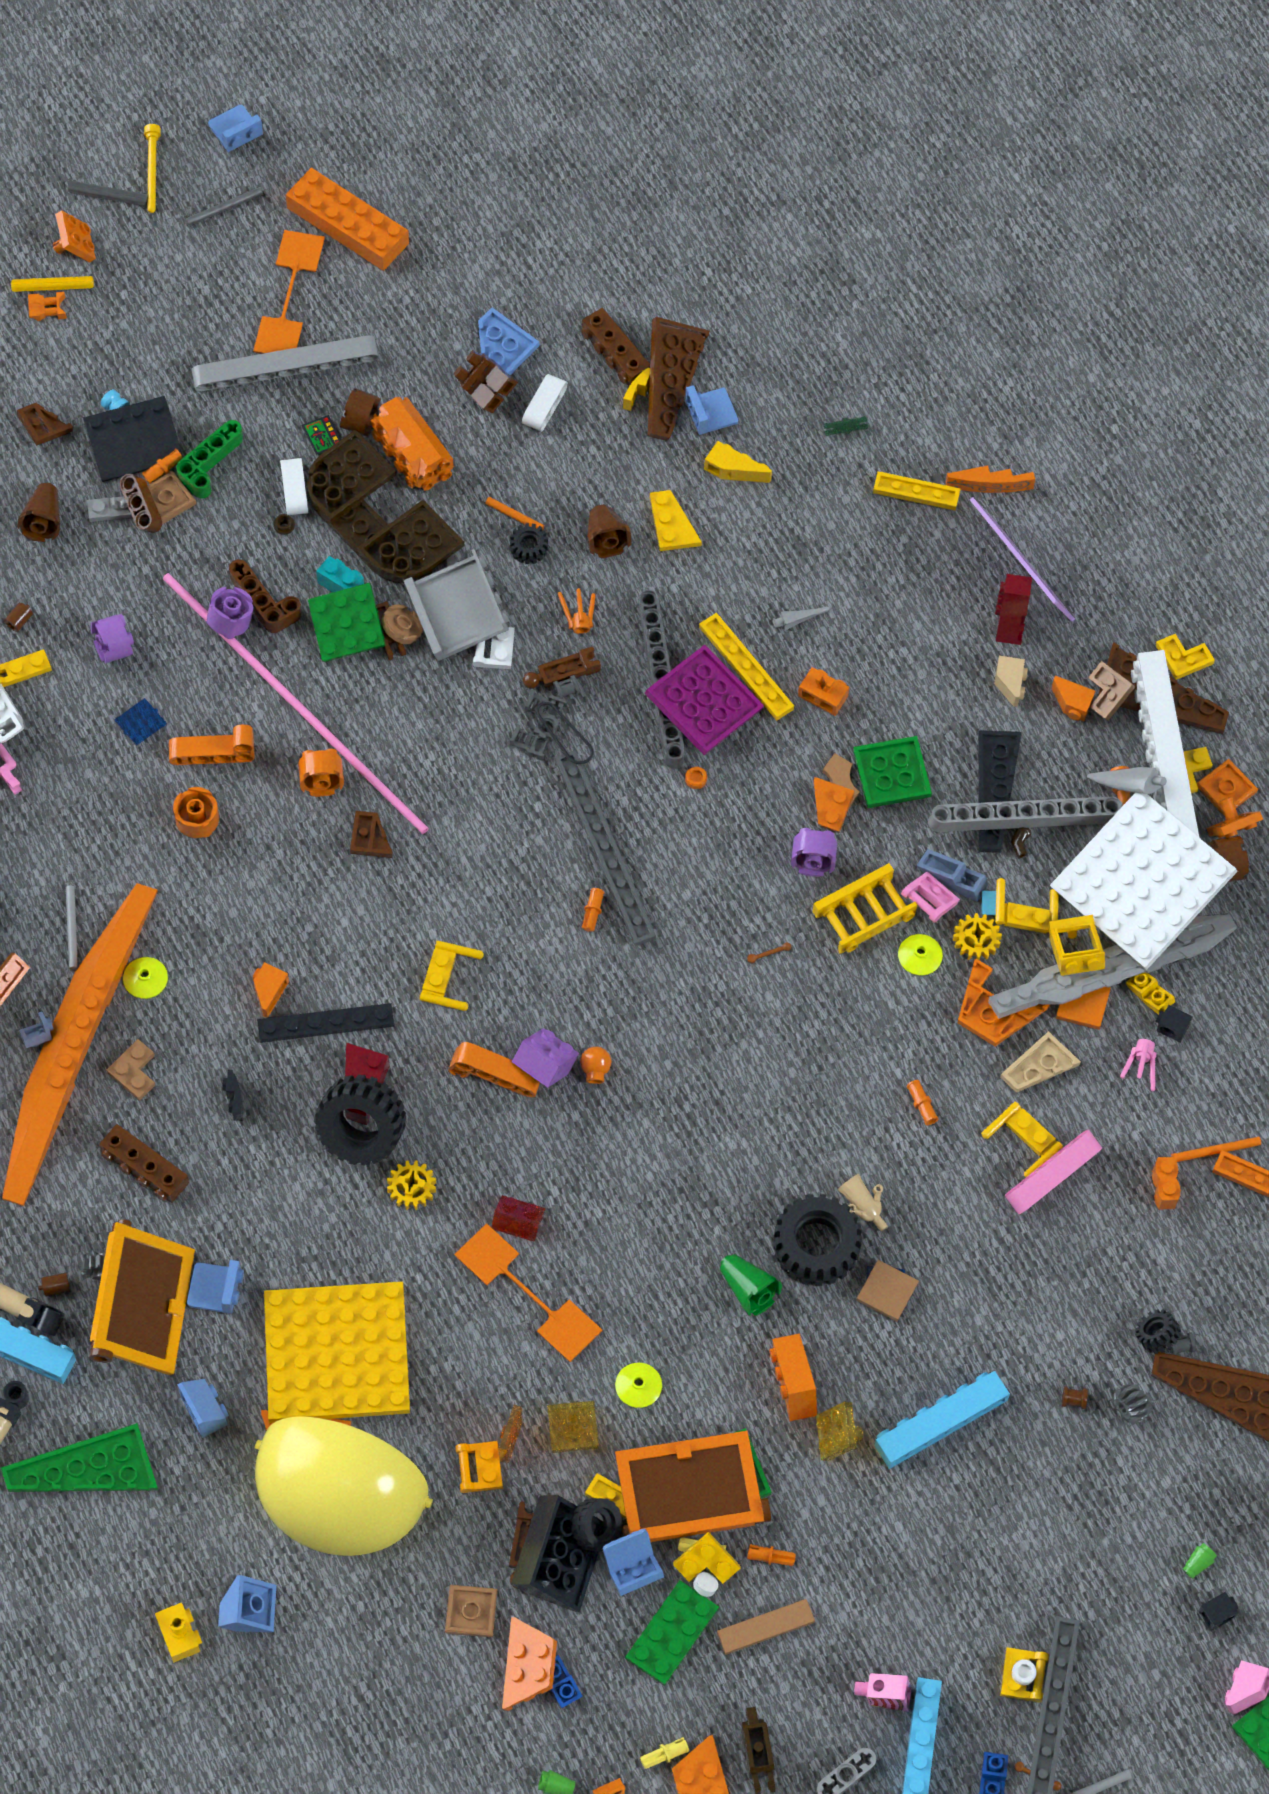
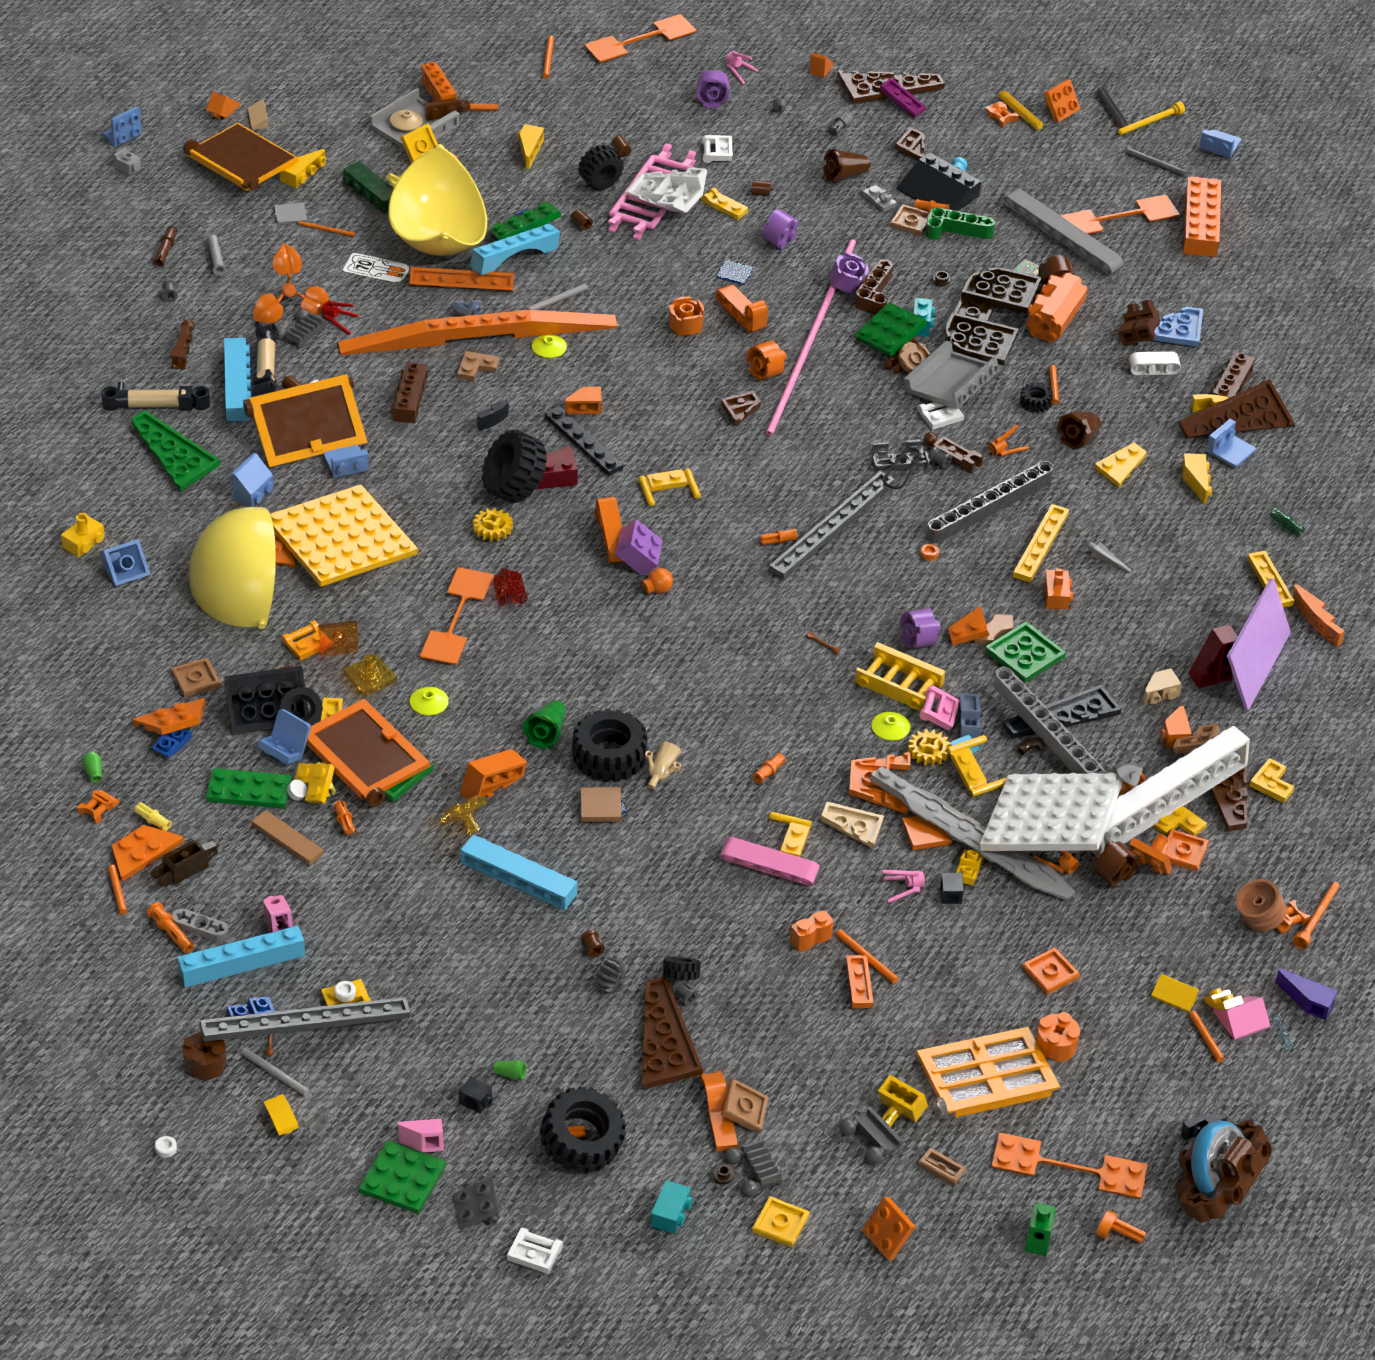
camera: 60 degrees right, 20 degrees down
(148, 508) = (893, 204): reddish brown beam -> none
(294, 486) = (963, 272): white beam -> none
(704, 699) = (990, 524): magenta plate -> none
(1076, 961) = (952, 802): yellow window -> none

